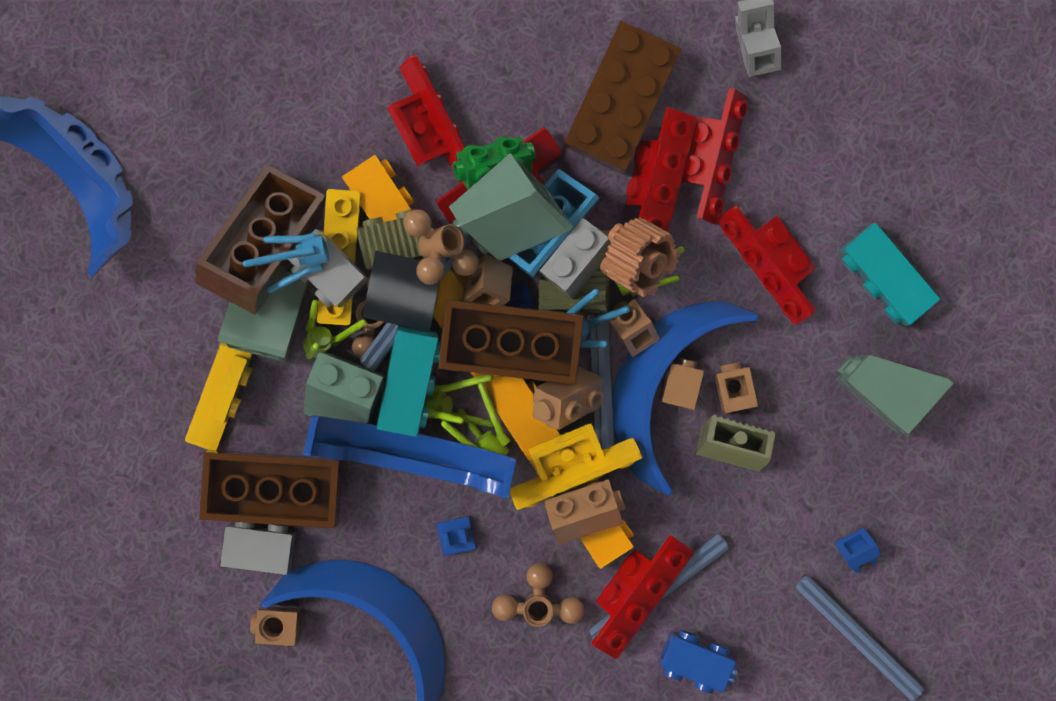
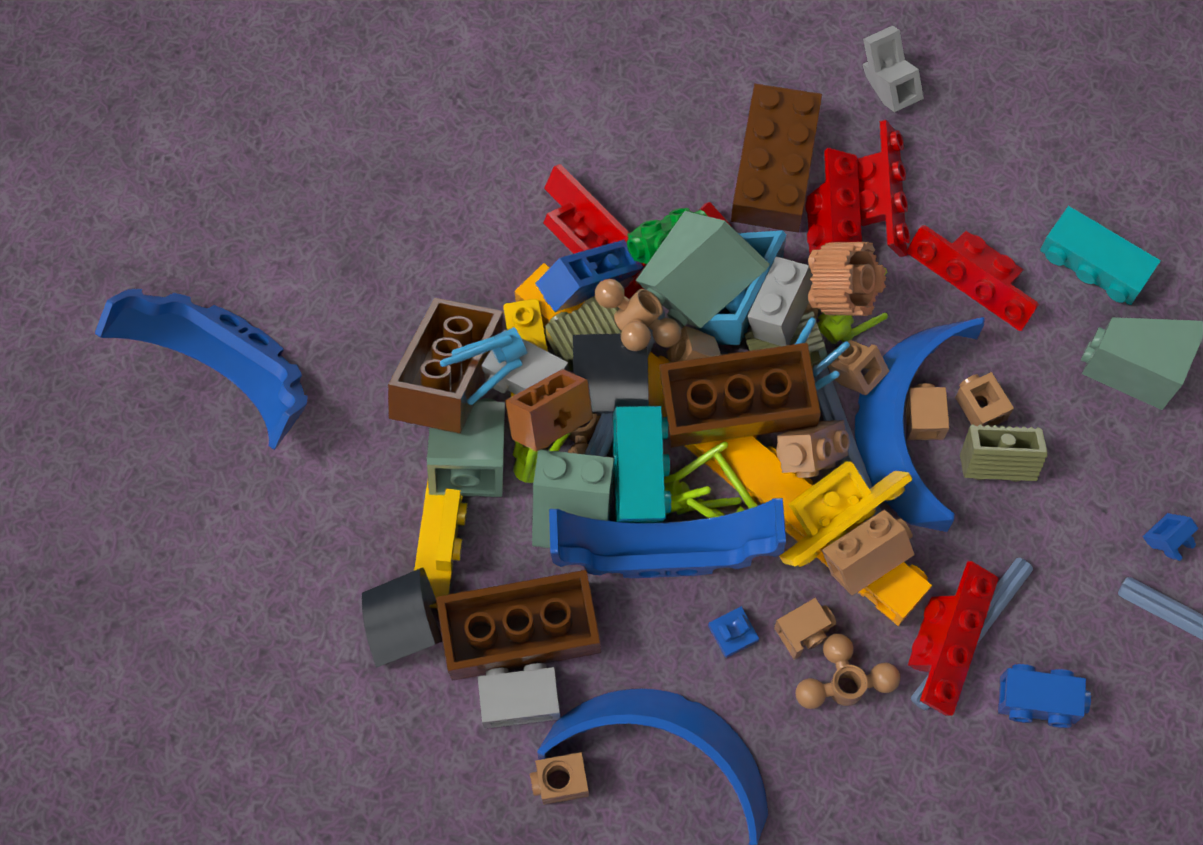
camera: 10 degrees left, 20 degrees down
(171, 456) = (400, 617): none -> black slope
(335, 321) = (549, 409): none -> dark orange brick
(409, 183) = (576, 276): none -> blue slope
(517, 550) = (805, 627): none -> medium nougat brick

